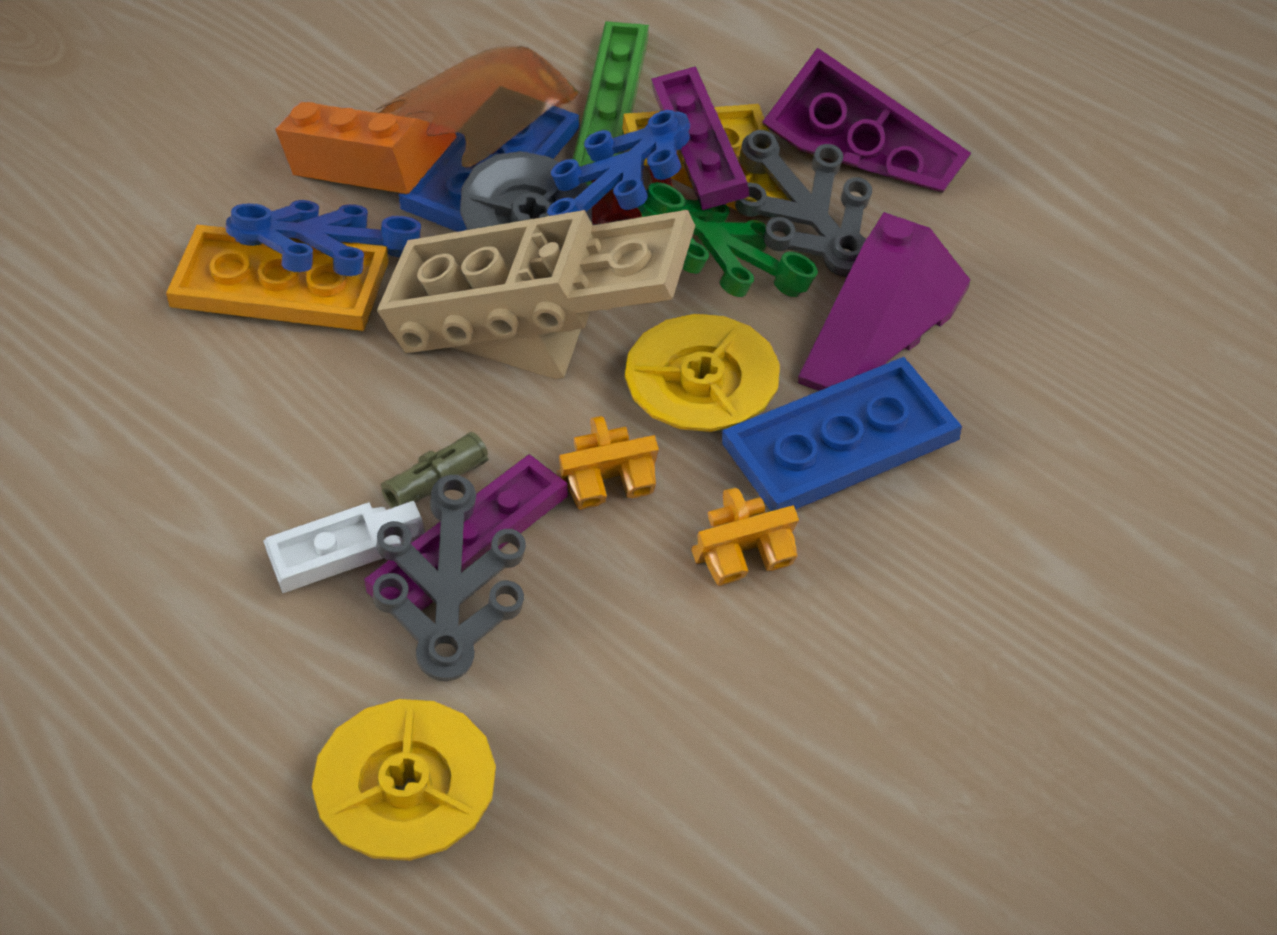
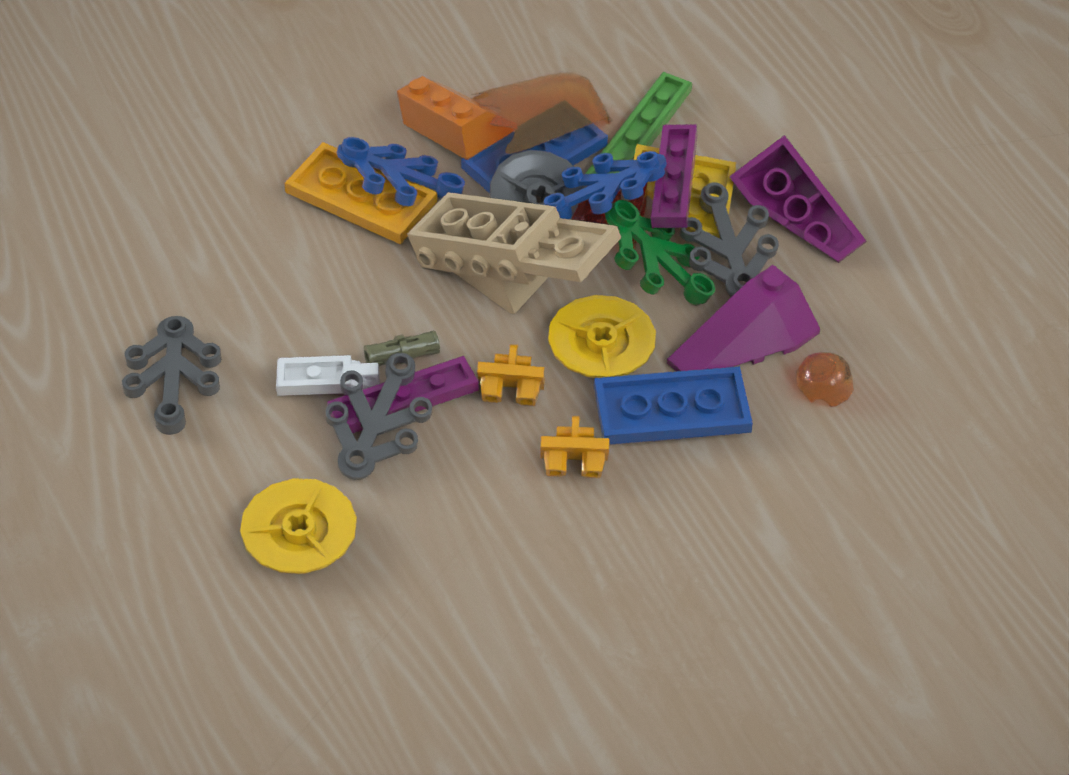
camera: 20 degrees right, 0 degrees up
(92, 551) = (175, 334): none -> dark grey plant
(1014, 339) = (825, 378): none -> clear orange hair

